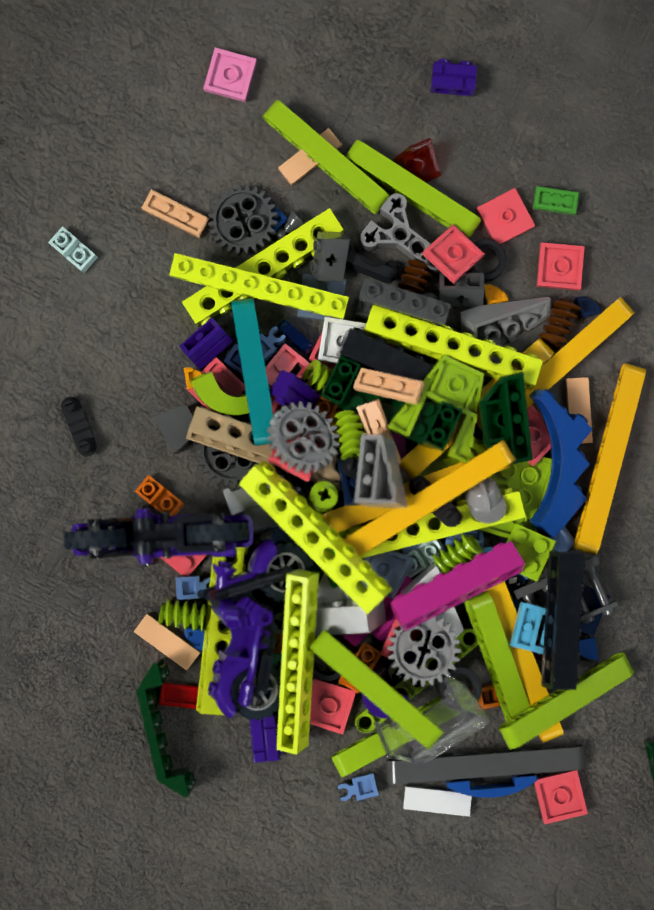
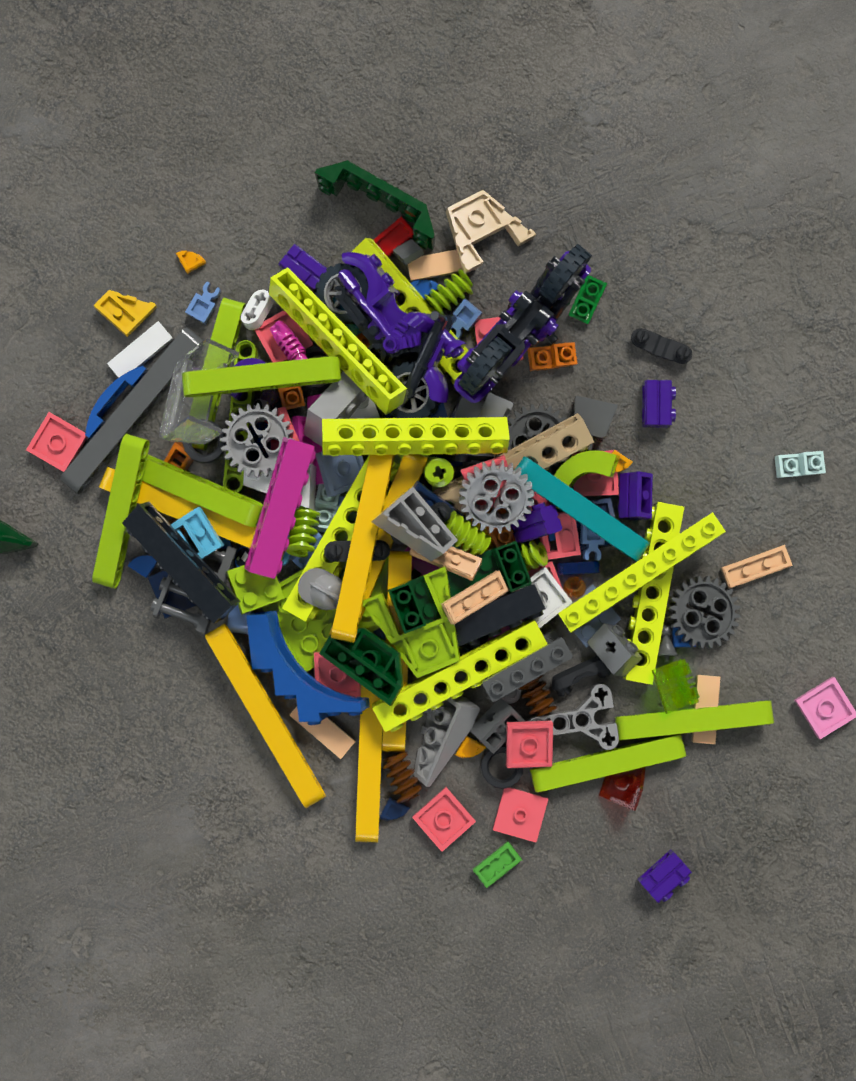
camera: 135 degrees right, 0 degrees up
(95, 509) = (587, 299): none -> green slope
(111, 646) = (478, 219): none -> tan wing
(123, 390) = (657, 403): none -> dark purple brick
(181, 674) = (408, 252): none -> dark grey tile
(307, 330) = (574, 582): none -> clear orange plate
(315, 192) = (674, 685): none -> clear neon green hinge
(327, 744) = (256, 310): none -> white beam
(330, 695) = (288, 341): none -> dark pink hinge
(336, 828) = (190, 260): none -> light orange tile
(420, 841) = (124, 311): none -> yellow wing

